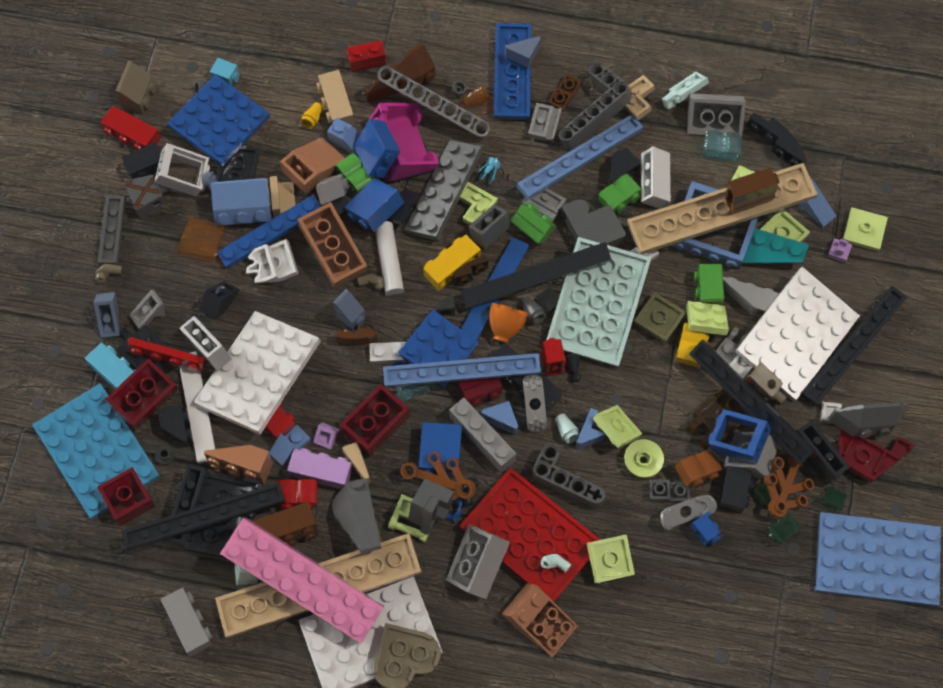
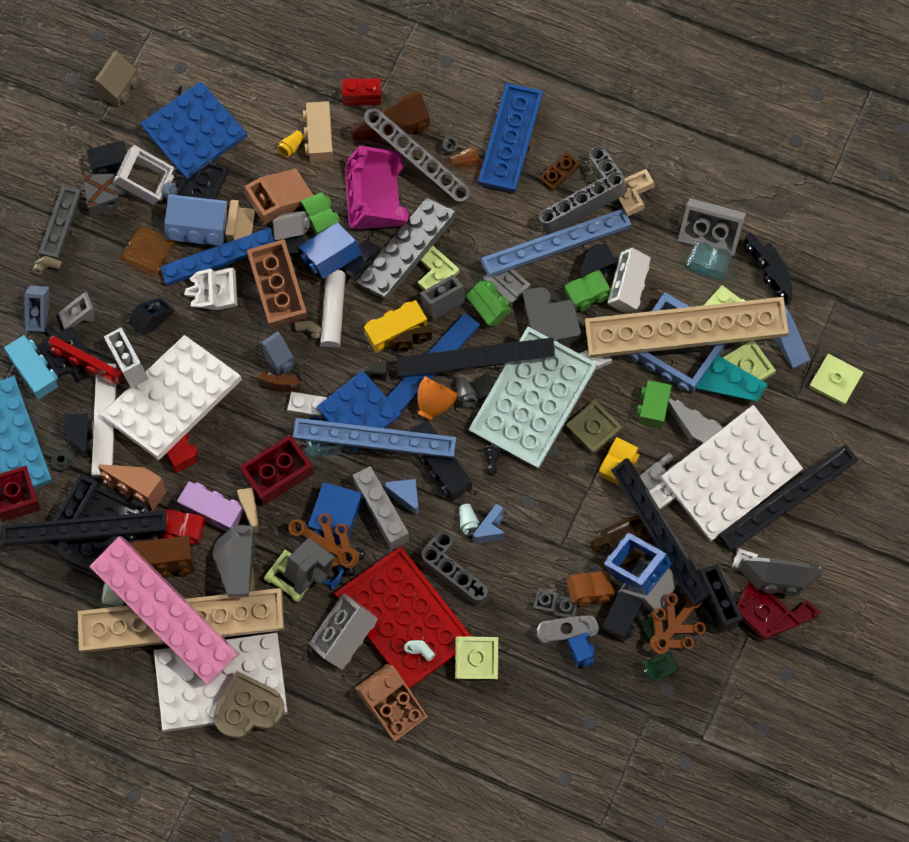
camera: 15 degrees right, 0 degrees up
(129, 129) = (101, 121): red brick -> none
(141, 394) = (52, 395): dark red slope -> none
(187, 621) = (45, 627): light grey brick -> none
(226, 71) = (213, 80): medium azure brick -> none
(284, 445) = (181, 476): medium blue slope -> none
(326, 435) = (225, 475): lavender slope -> none
(343, 135) = (320, 174): medium blue slope -> none
(376, 148) = (346, 192): blue brick -> none
(480, 390) = (390, 462): dark red brick -> none
(492, 165) = (462, 232): medium azure piece -> none
(523, 51) = (526, 119): sand blue slope -> none
(534, 389) = (441, 472): light grey piece -> none
(544, 122) = (529, 199): light grey plate -> none
(553, 357) = (471, 444): red brick -> none
(617, 426) = (519, 528): yellowish green plate -> none
(644, 449) = (540, 557): yellowish green dish -> none
(683, 89) = (682, 194): light aqua hinge -> none
(707, 318) = (641, 437): yellowish green plate -> none
(751, 190) = (717, 315): reddish brown brick -> none
(765, 383) = (677, 511): dark tan torso -> none
(834, 499) = (721, 648): clear green slope -> none
(839, 250) = (802, 396): lavender tile -> none
(878, 559) = (750, 718): medium blue plate -> none

